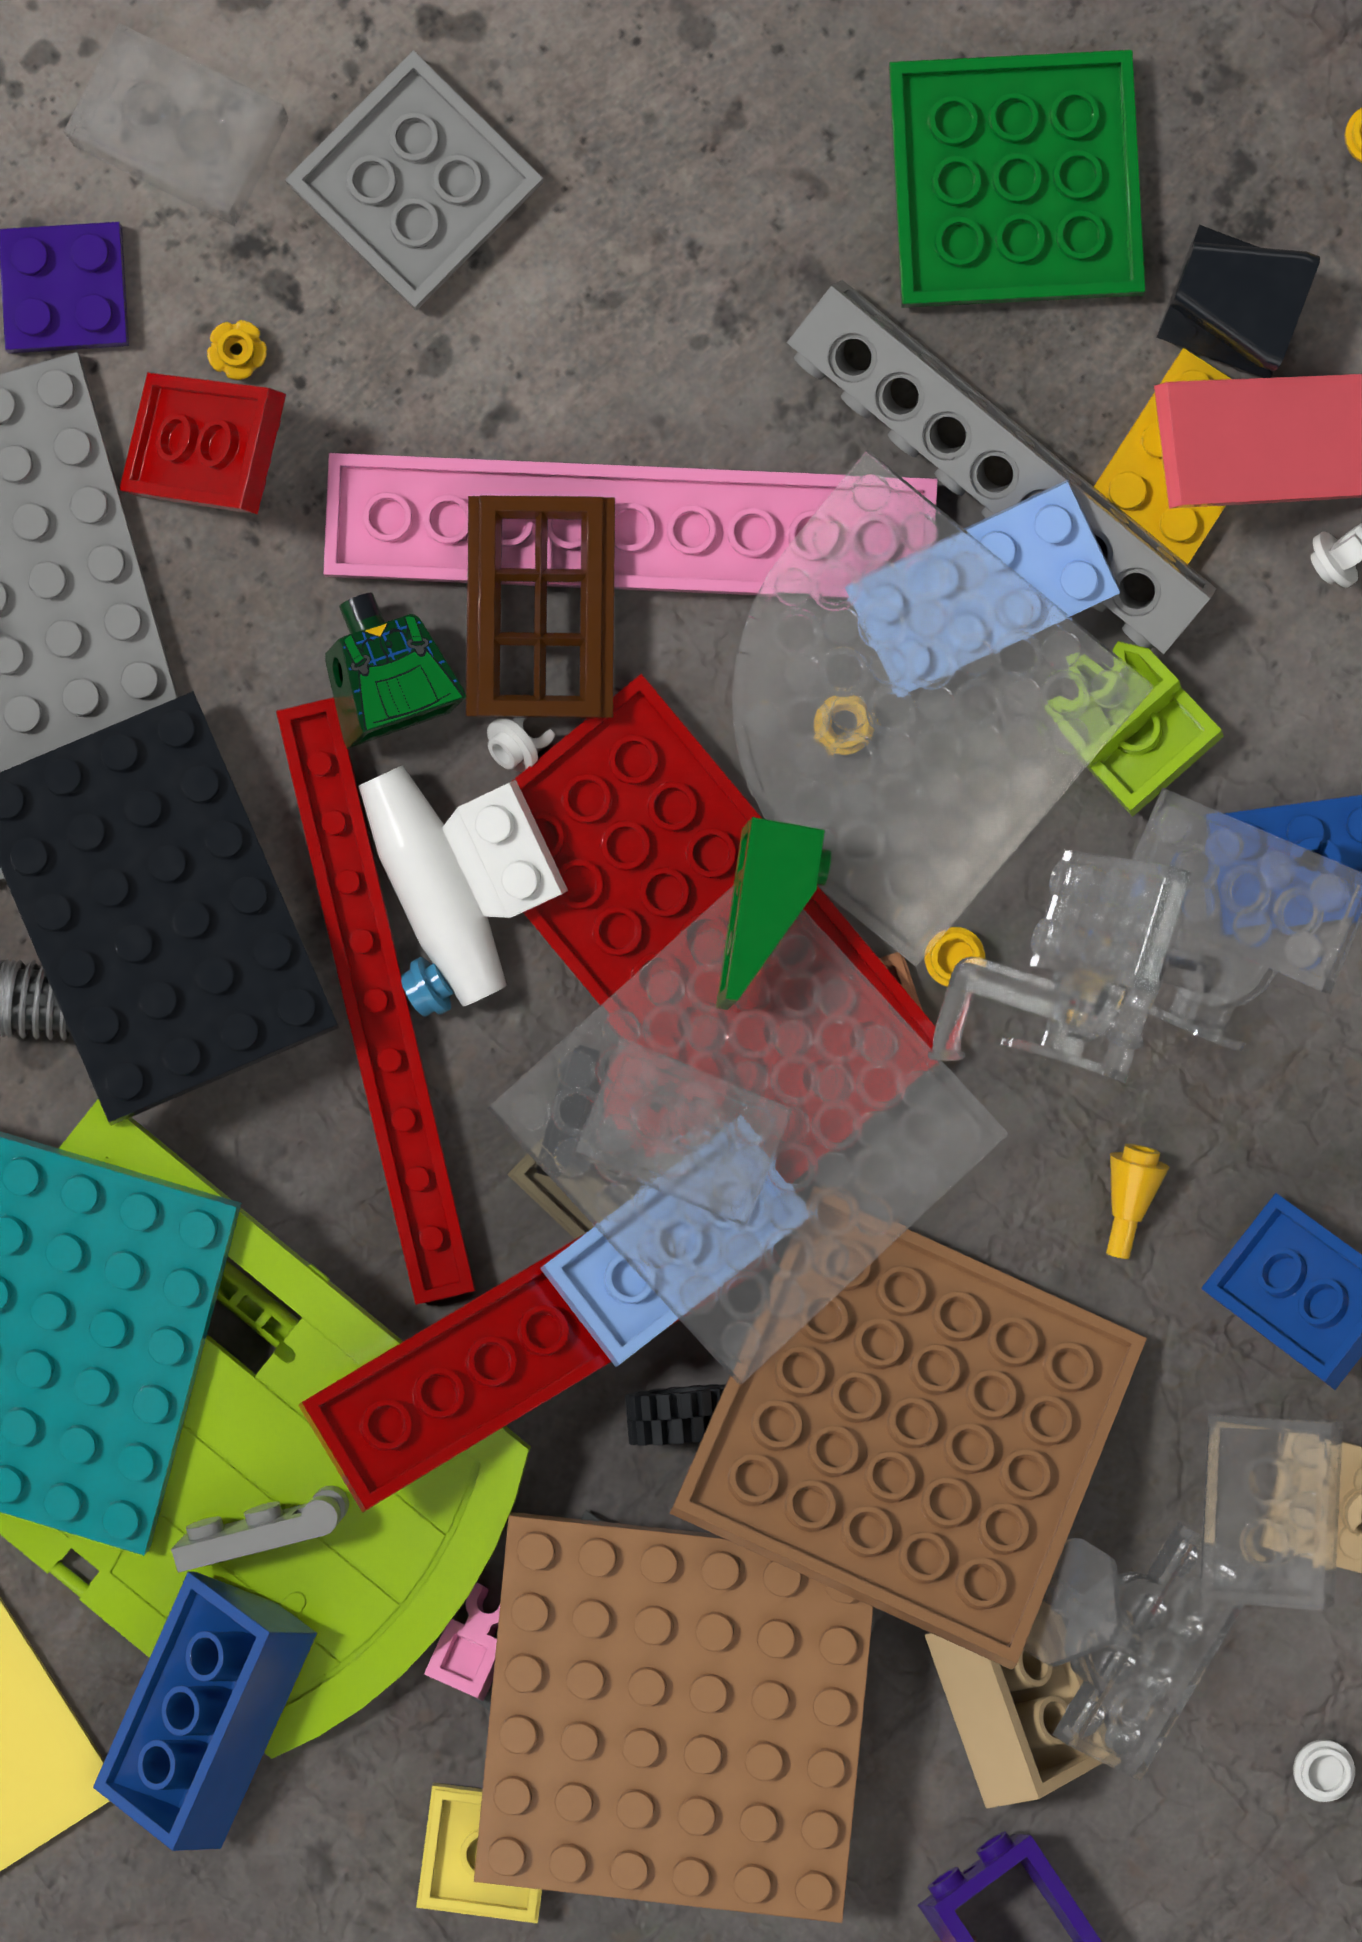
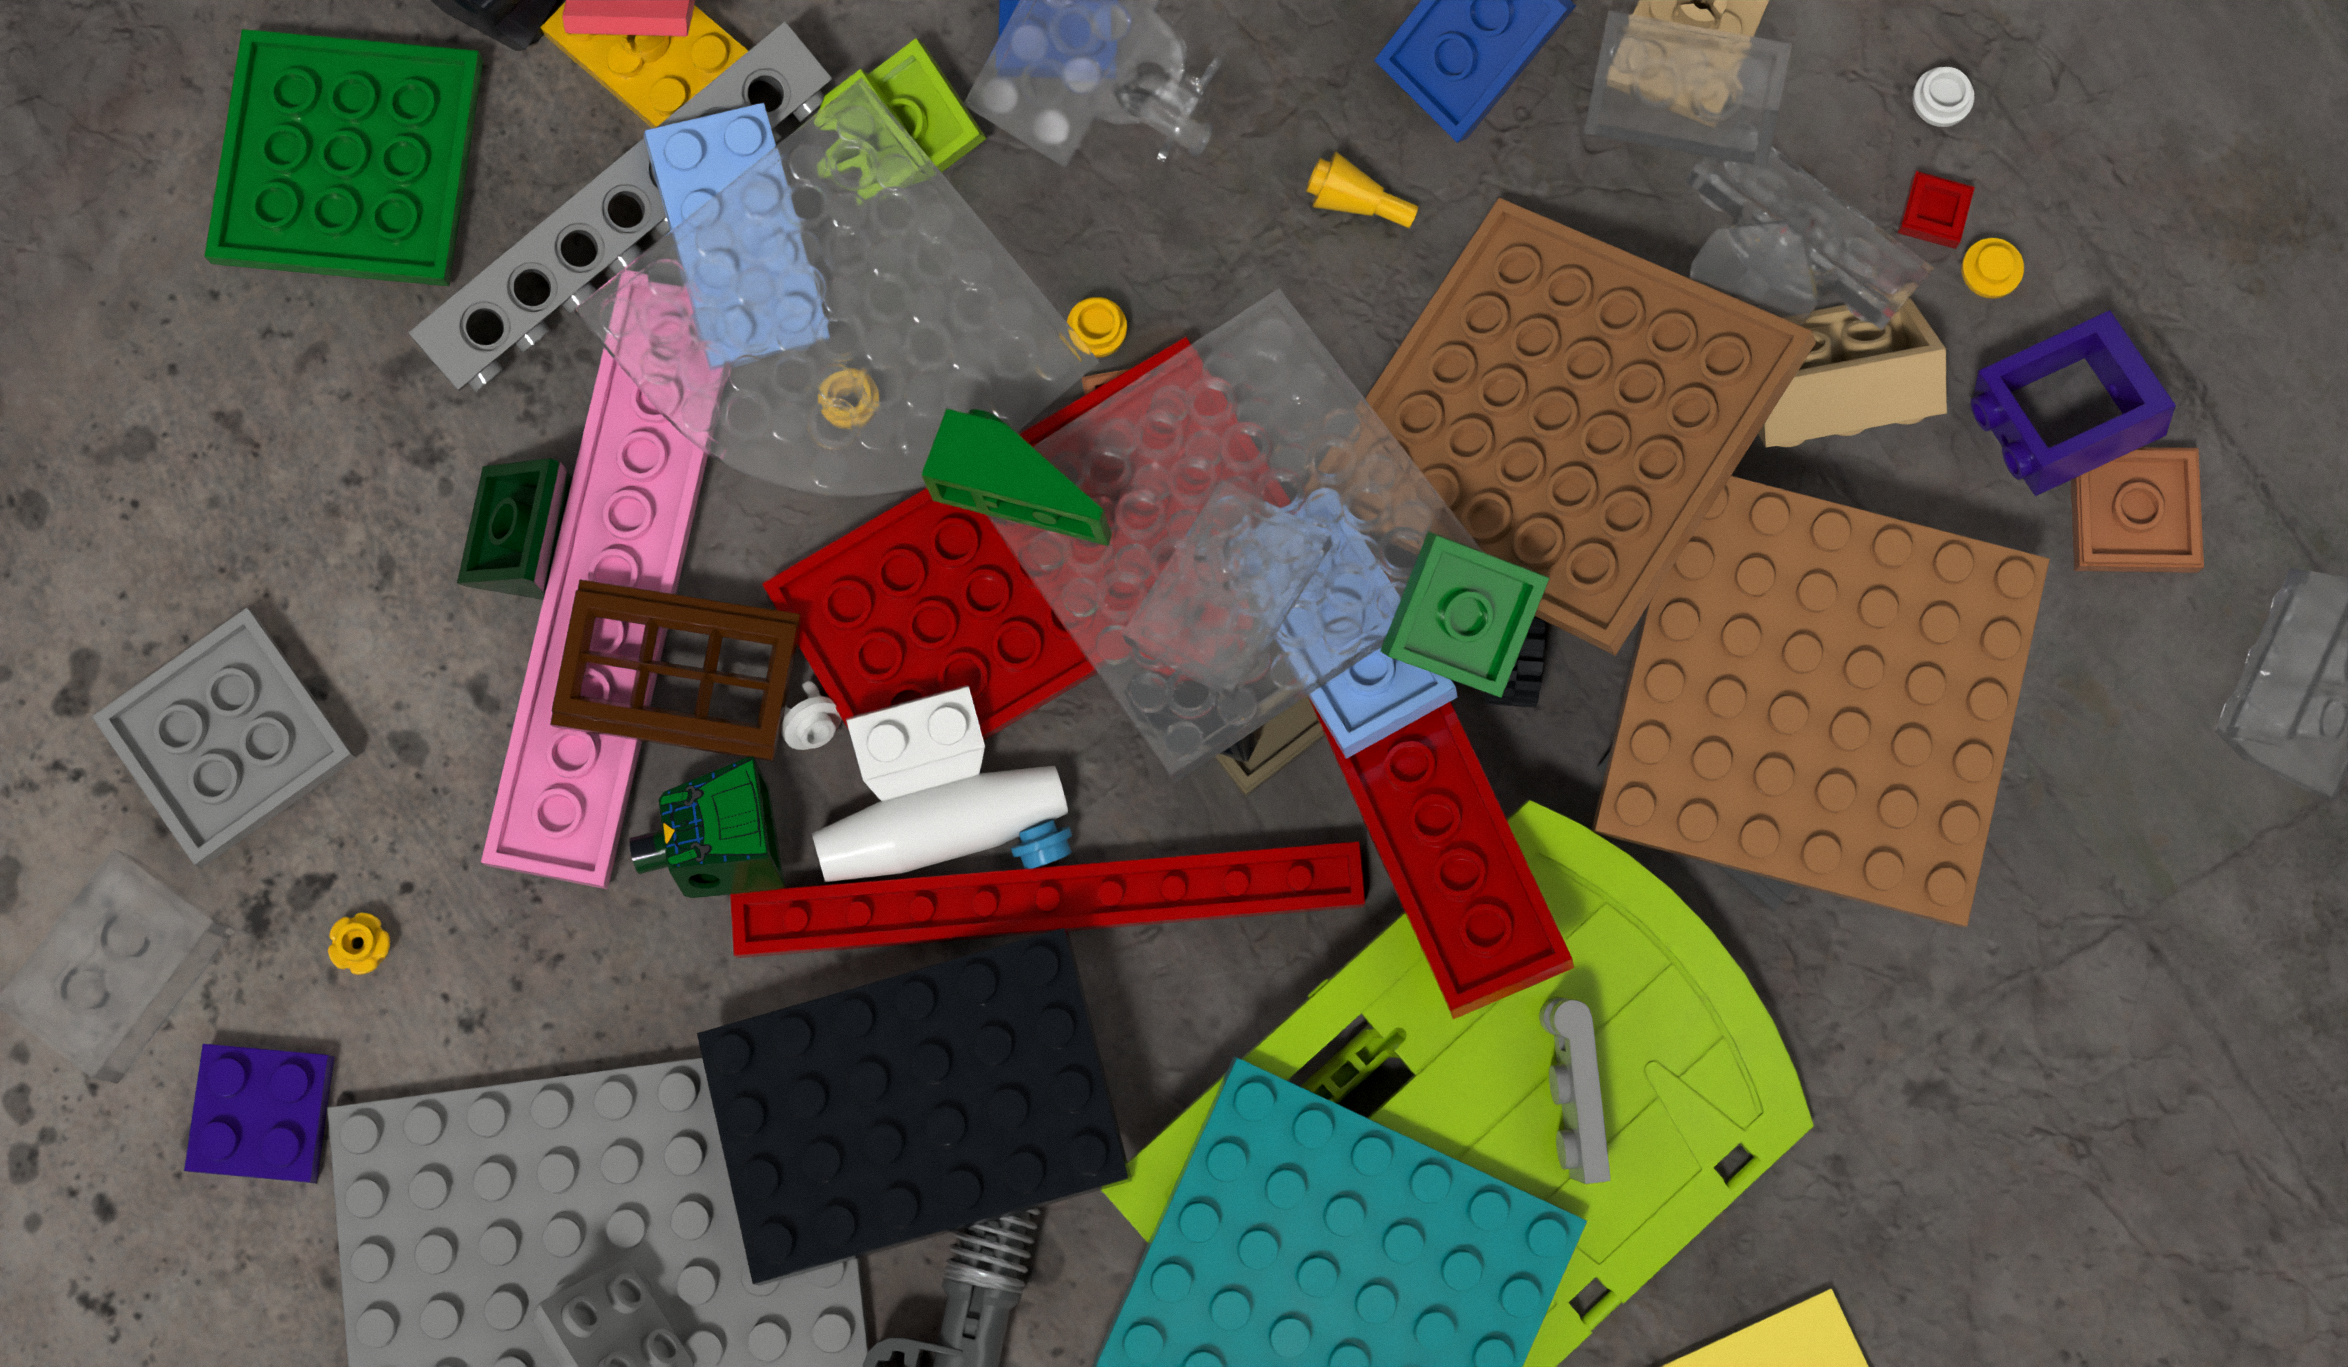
camera: 75 degrees left, 10 degrees down
(203, 442) = (442, 982): red plate -> none
(204, 1712) = (1759, 1183): blue slope -> none
(451, 1860) = (1937, 951): light yellow plate -> none
(467, 1651) = (1728, 903): bright pink plate -> none
(662, 420) = (515, 527): none -> dark green slope
(685, 1363) = (1464, 614): none -> green plate
(1098, 937) = (1111, 180): clear plate -> none
(1149, 1839) = (1992, 268): none -> yellow plate
(1204, 1776) = (1936, 210): none -> red tile

